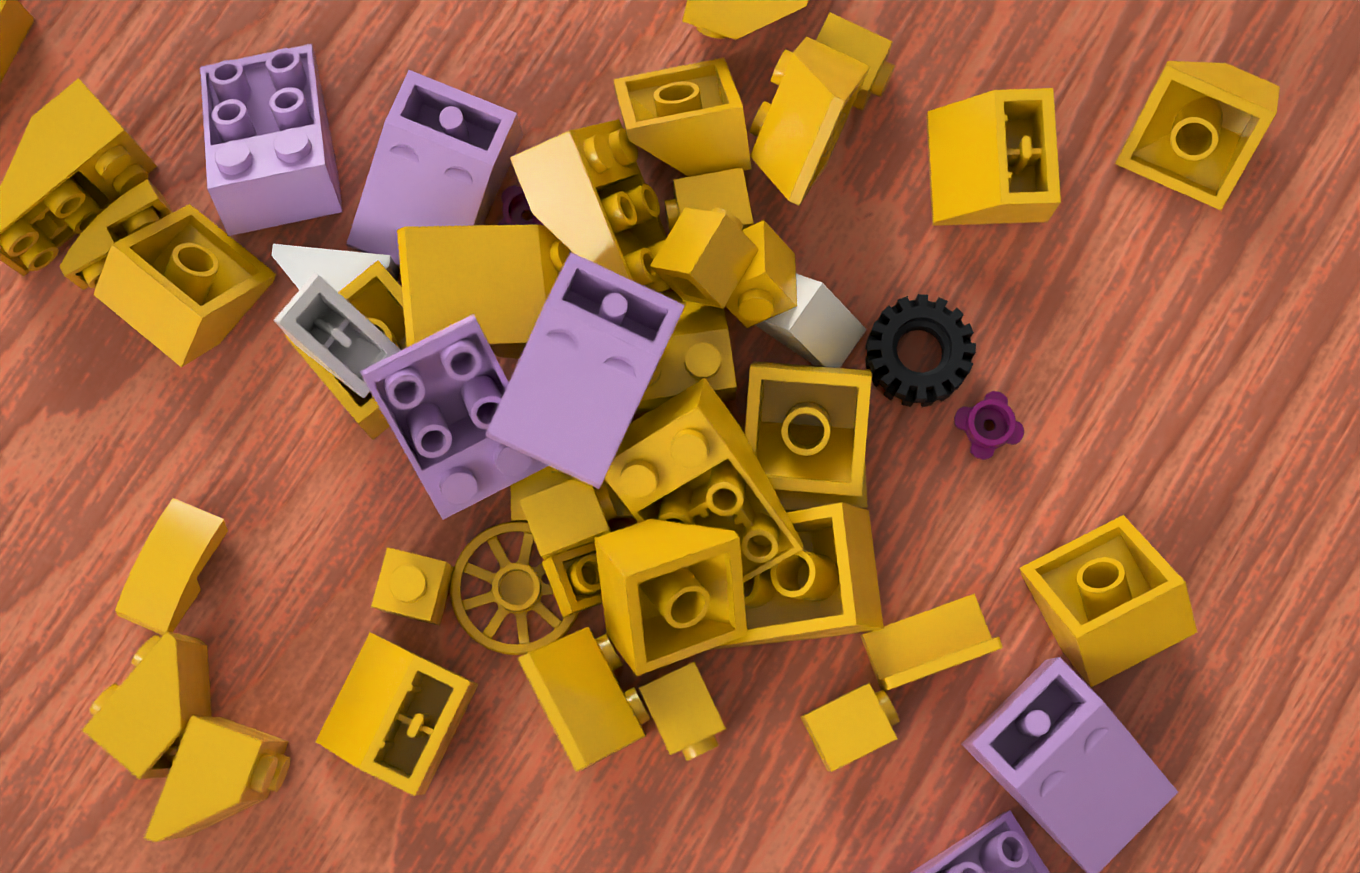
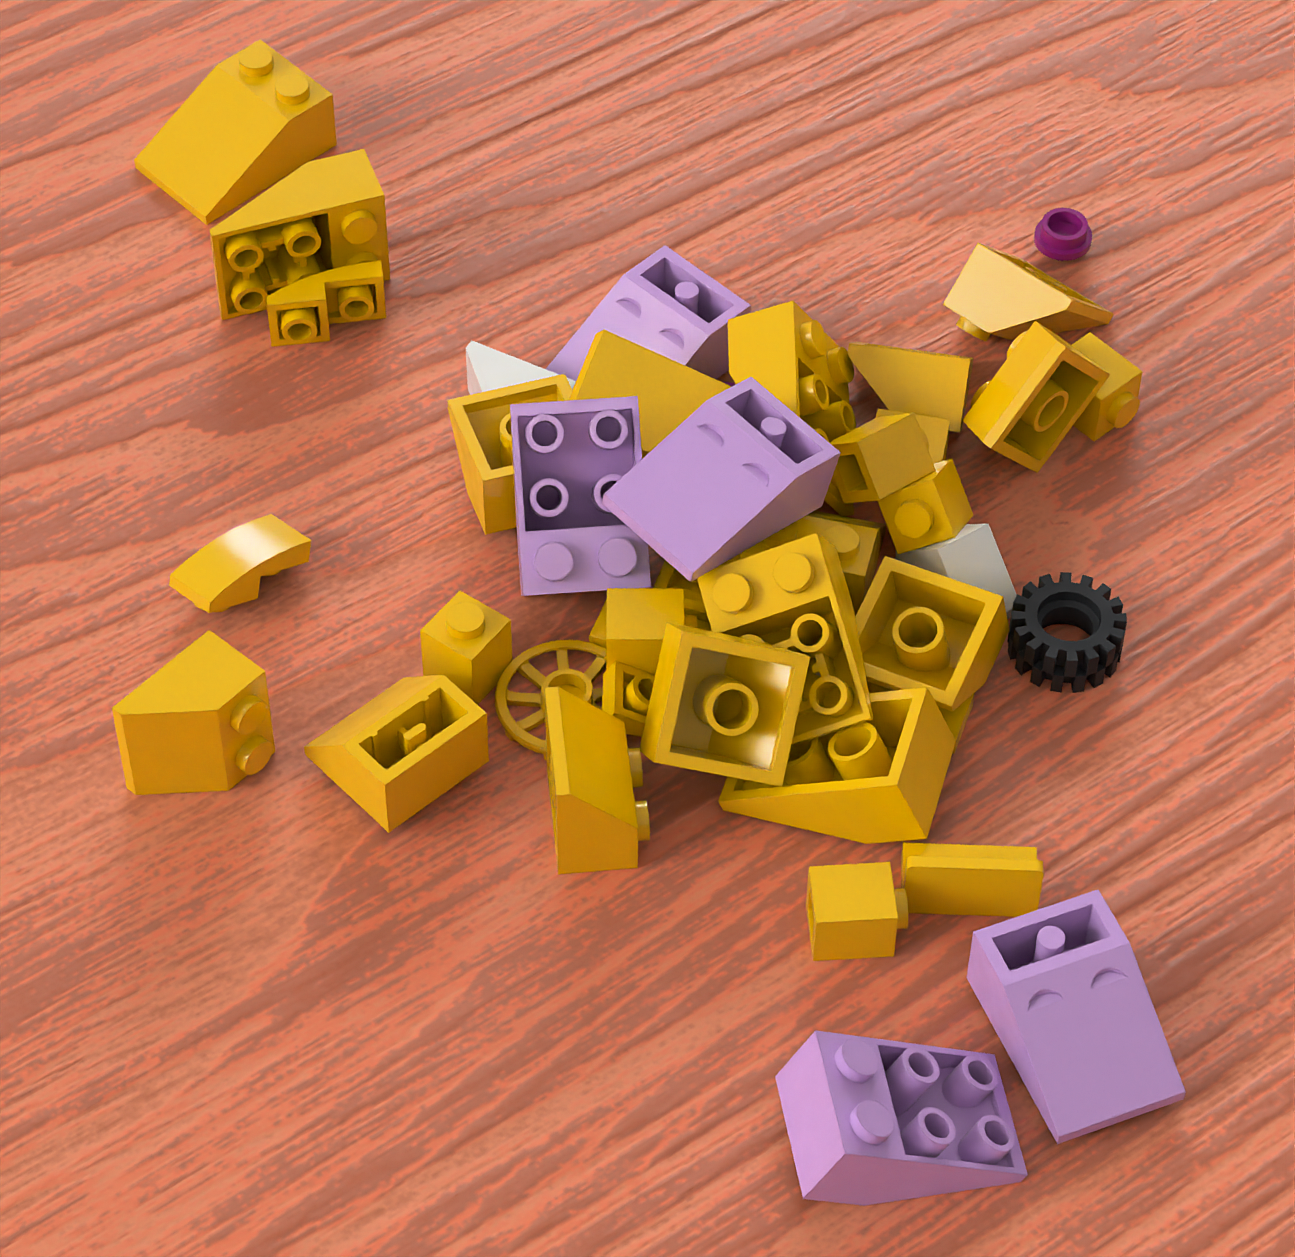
camera: 20 degrees right, 30 degrees down
(151, 709) = (163, 620): yellow slope -> none
(182, 283) = (366, 356): yellow slope -> none
(268, 141) = (504, 282): lavender slope -> none
(334, 333) = (485, 381): white slope -> none
(683, 711) = (686, 839): yellow brick -> none
(994, 158) = (1209, 498): yellow slope -> none
(995, 409) = (1117, 704): magenta plate -> none
(1110, 600) = (1183, 899): yellow slope -> none

